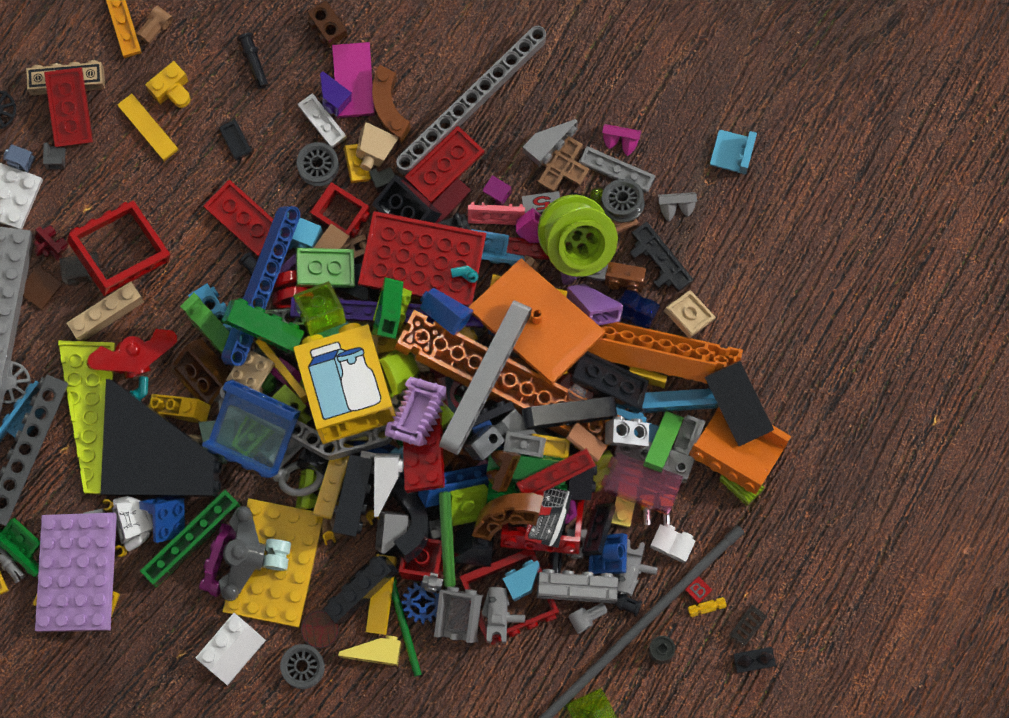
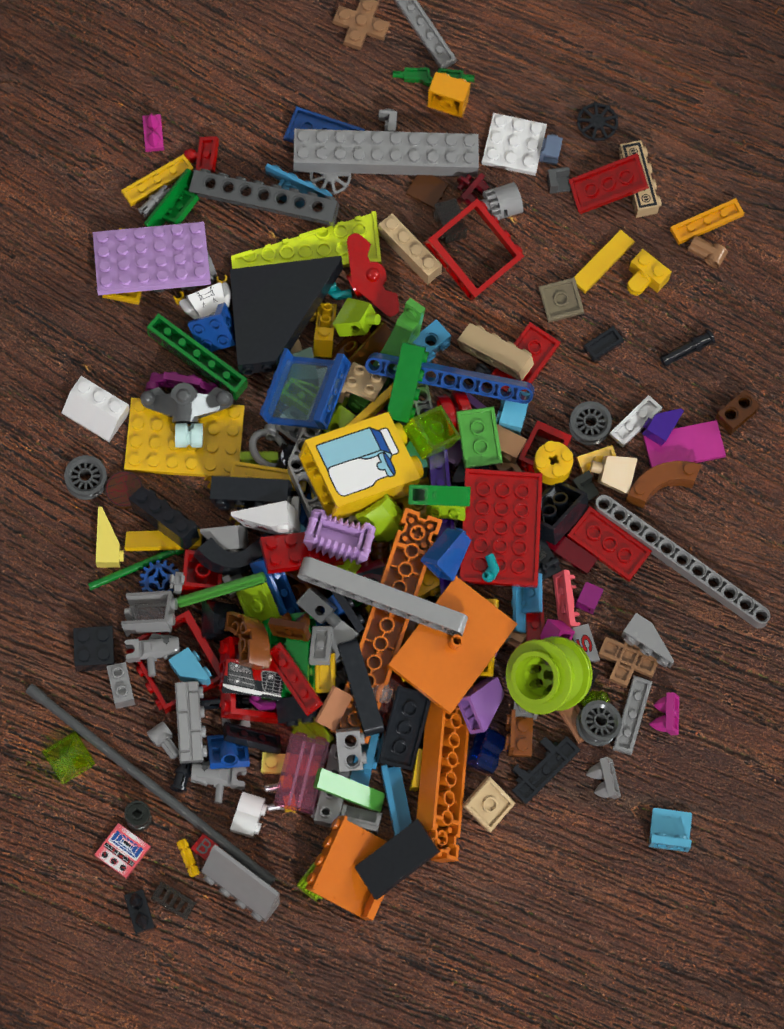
camera: 75 degrees right, 5 degrees down
(69, 211) = (503, 201): none -> light grey gear
(174, 373) = (355, 318): none -> lime torso
(183, 172) = (561, 300): none -> dark tan plate
(231, 242) = (496, 351): none -> tan brick
(359, 191) = (556, 453): none -> yellow brick
(485, 675) = (93, 648): none -> black brick
(527, 653) = (120, 685): none -> light grey brick
(692, 670) = (122, 851): none -> tile
(744, 556) = (240, 884): none -> light grey slope

